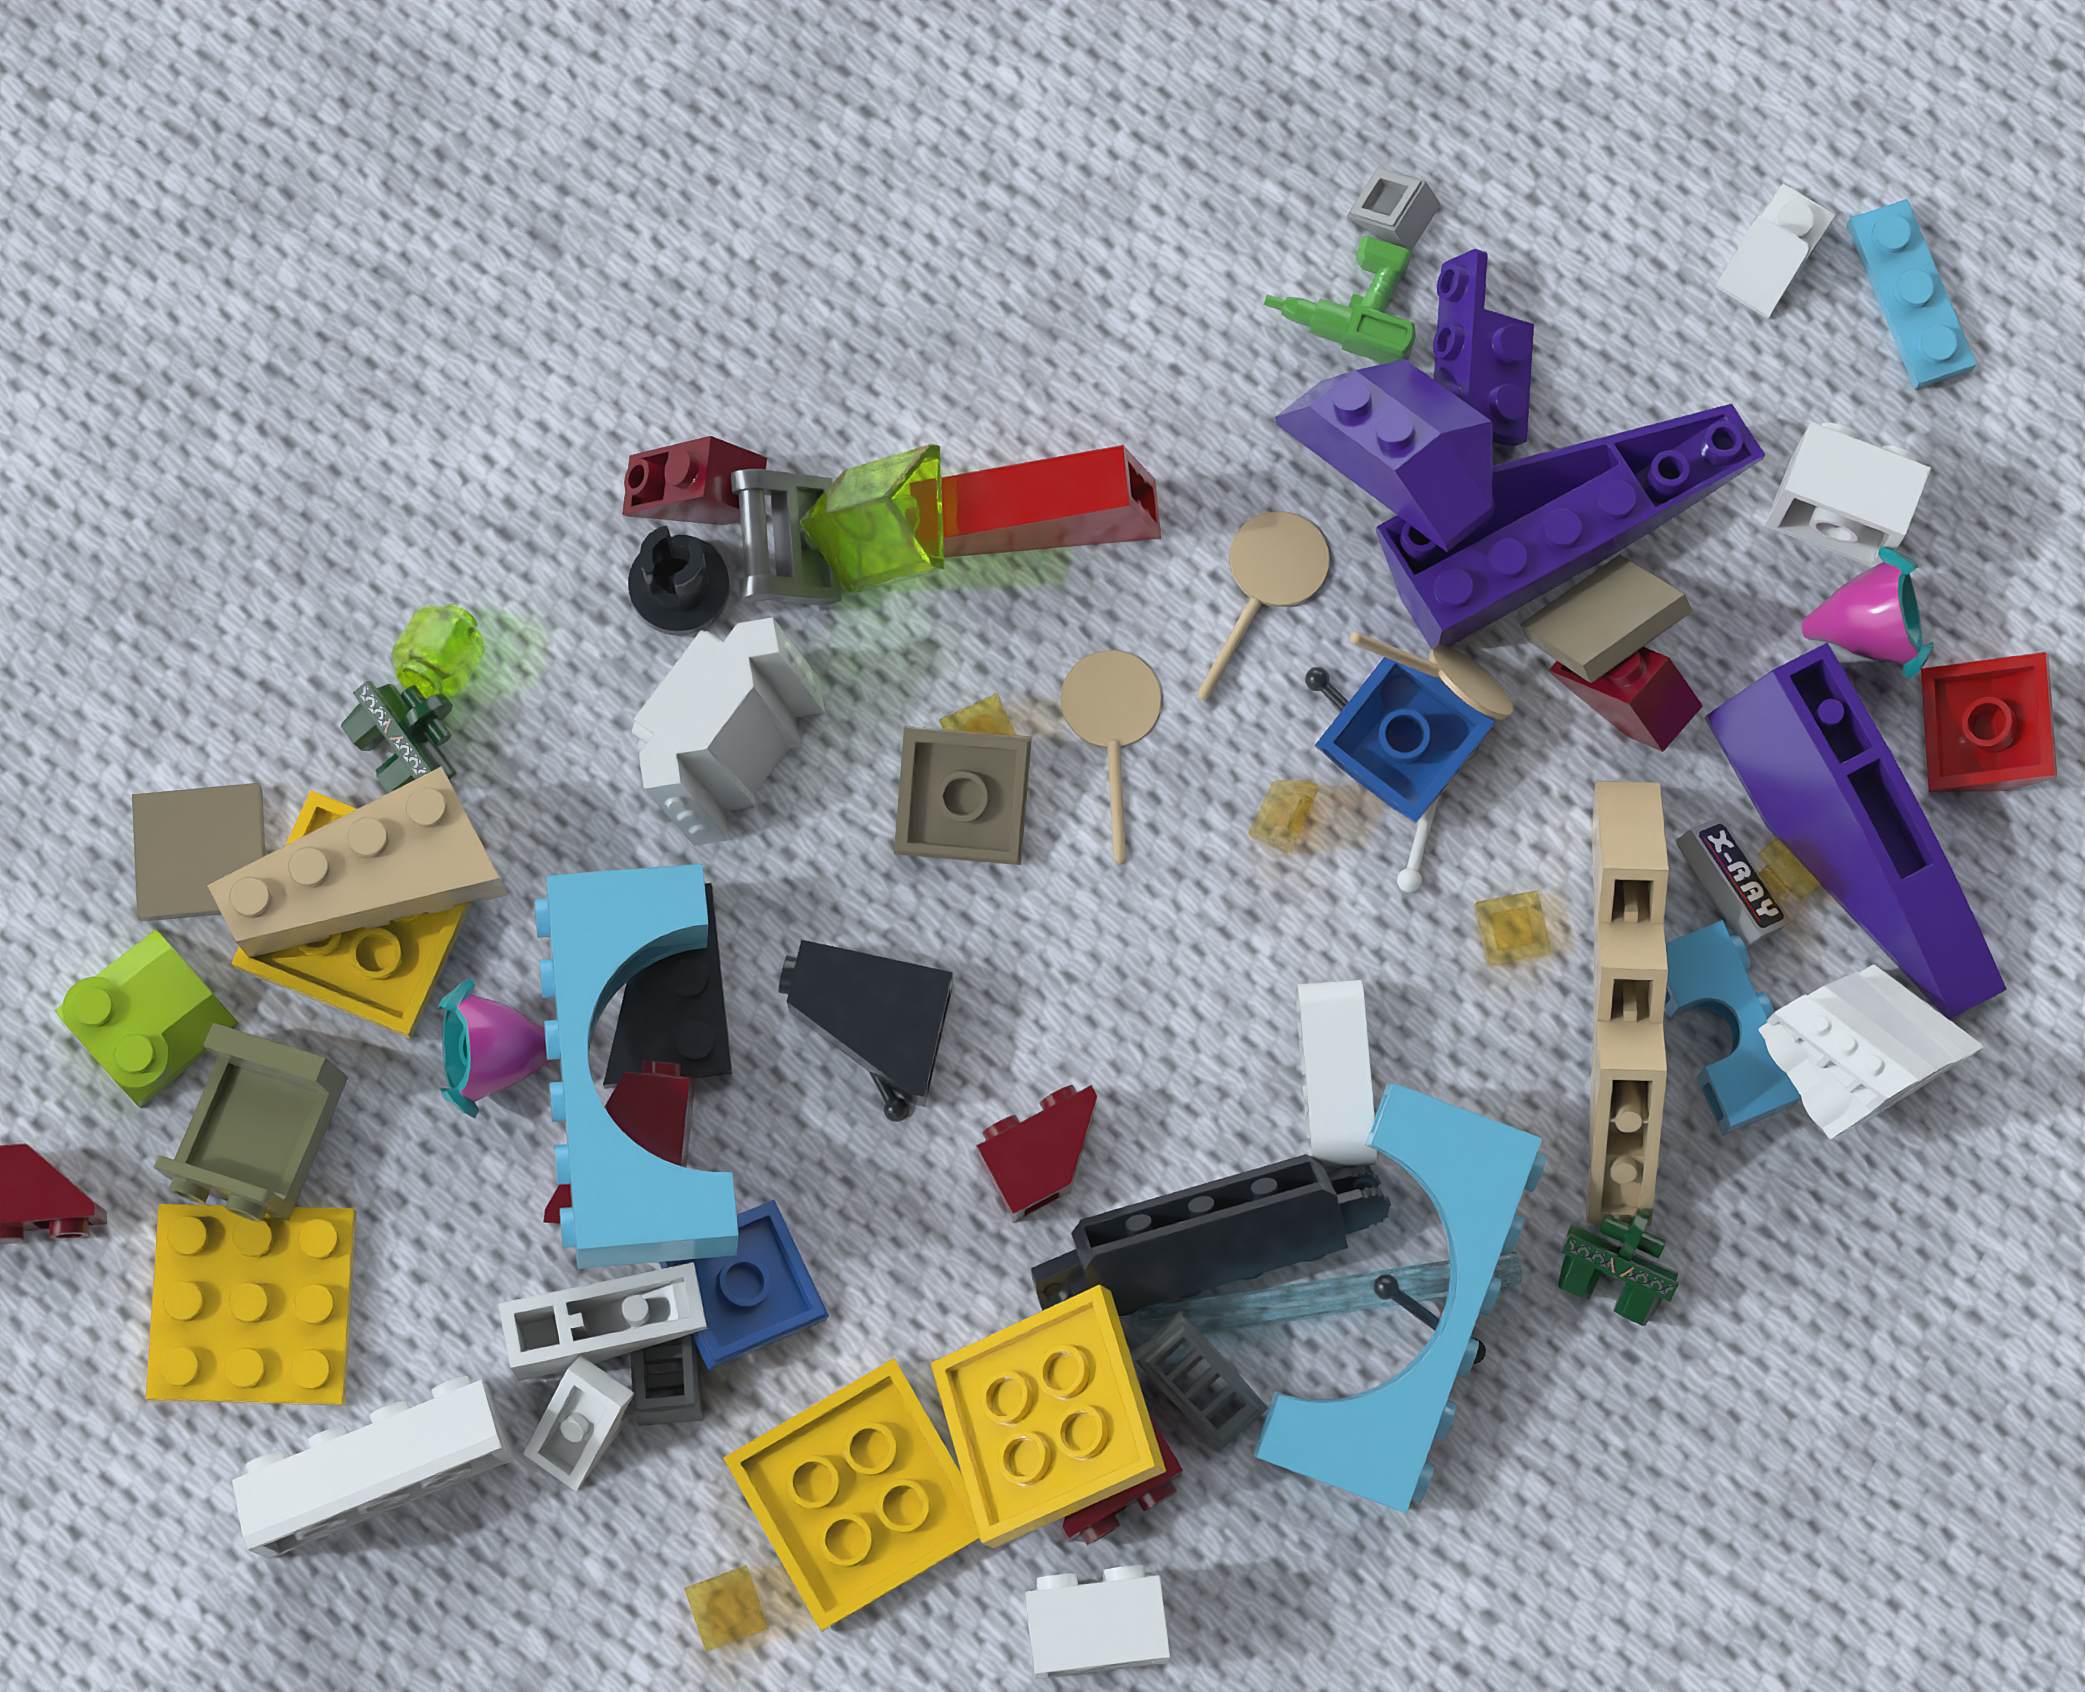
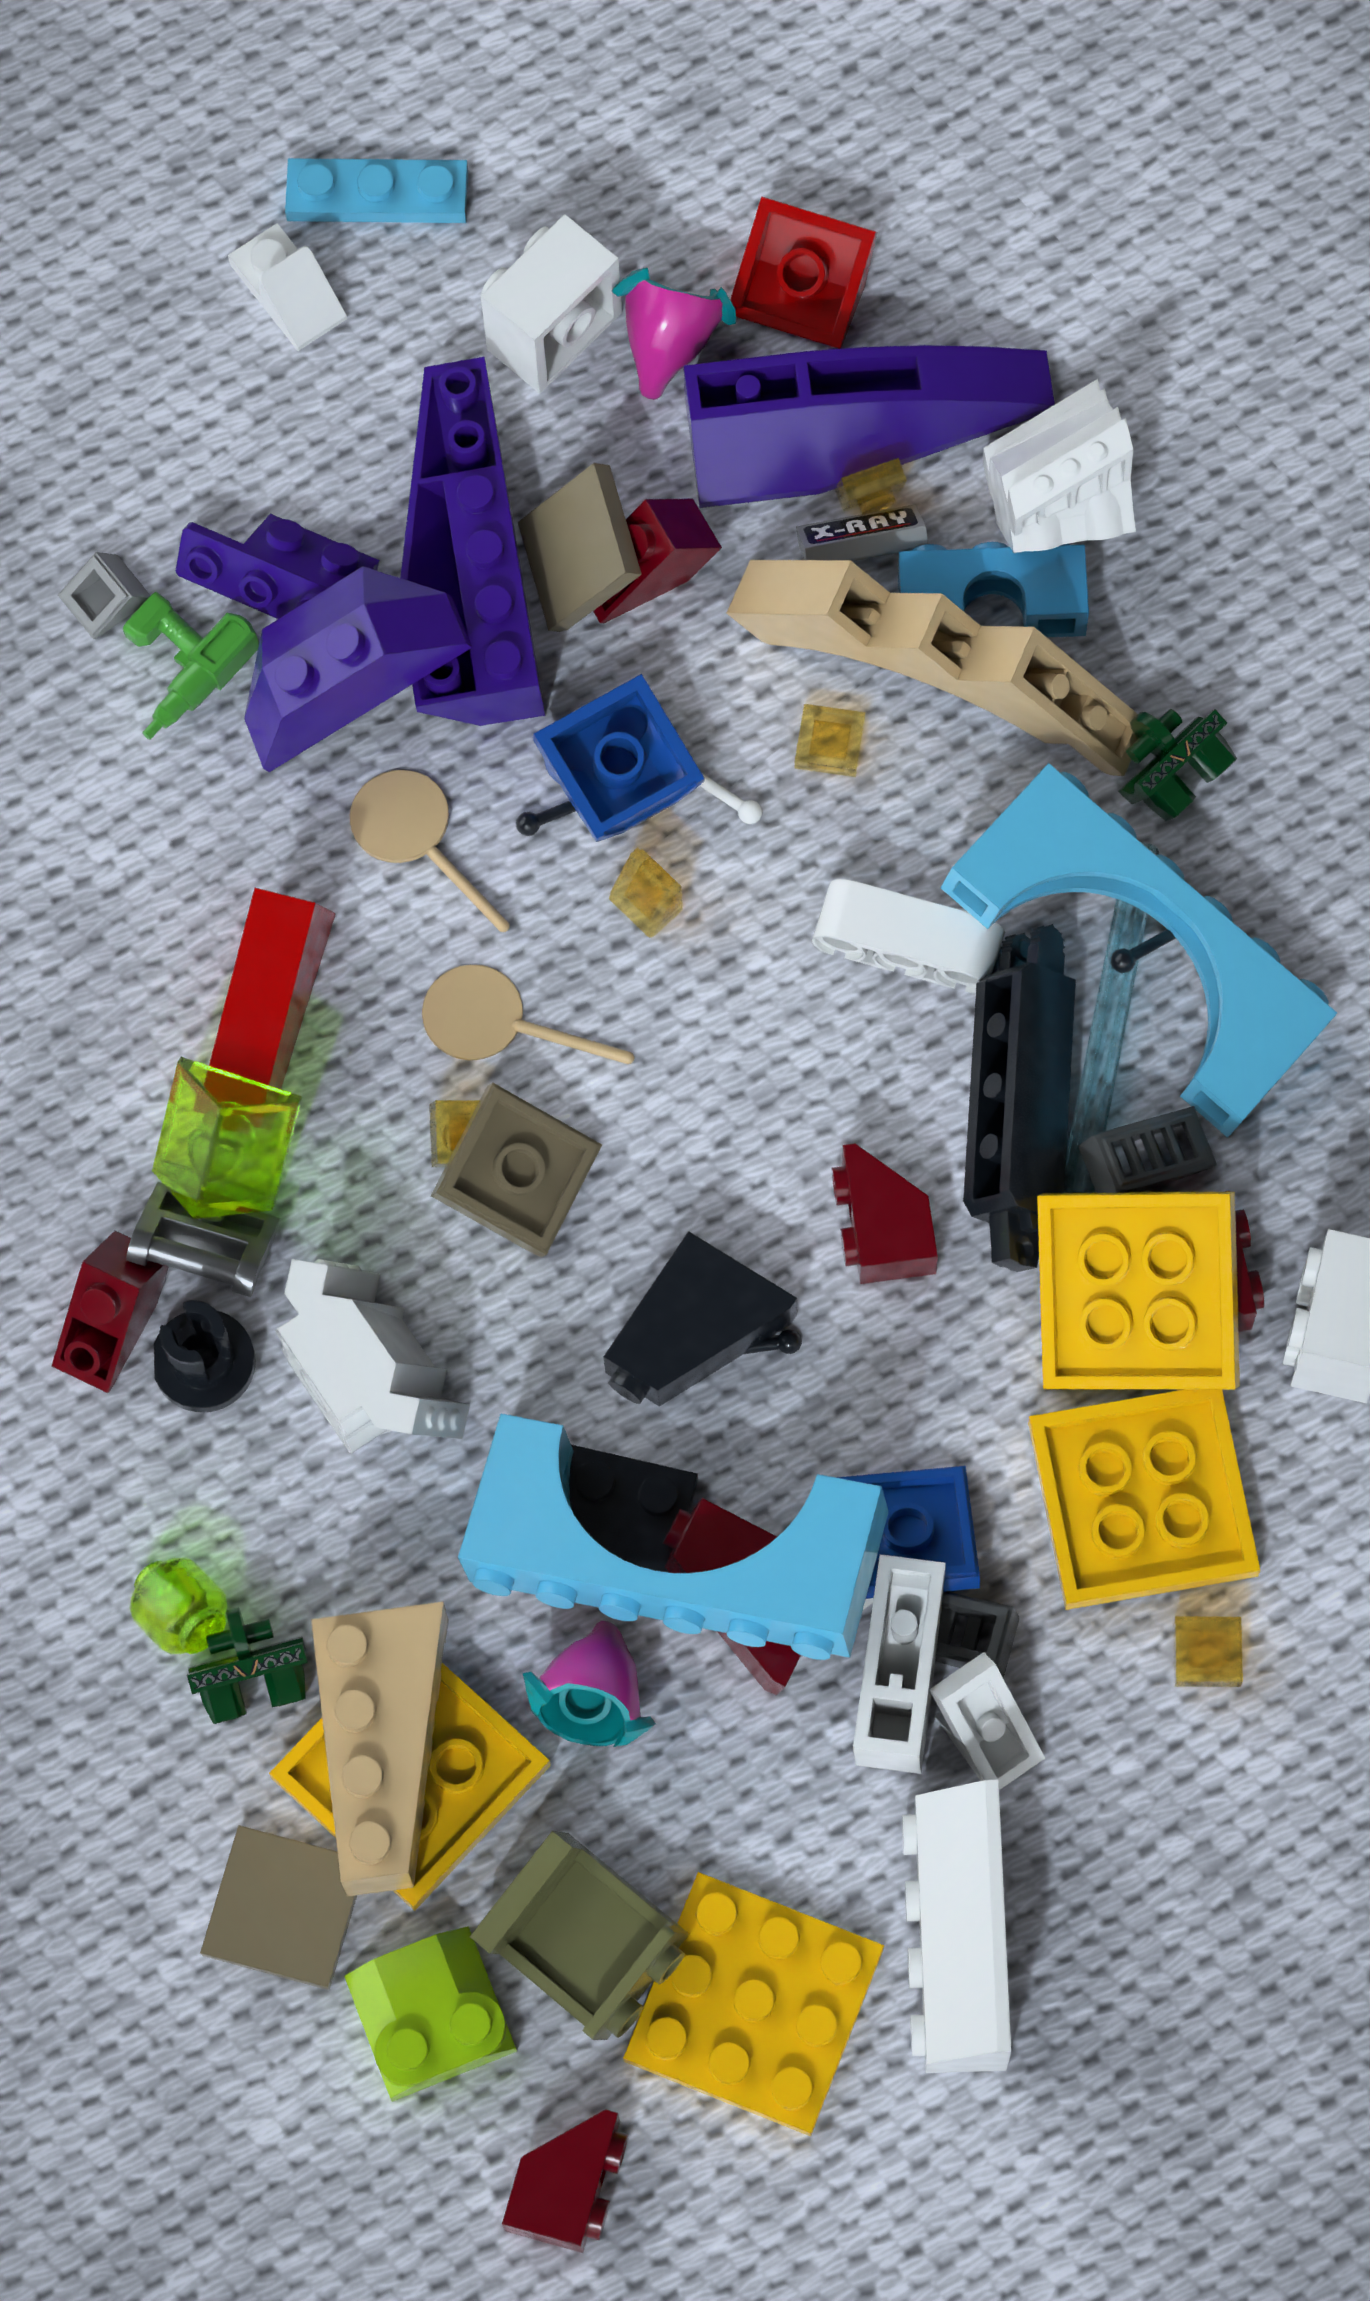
camera: 65 degrees left, 5 degrees down
(1455, 669) = (570, 695): tan piece -> none

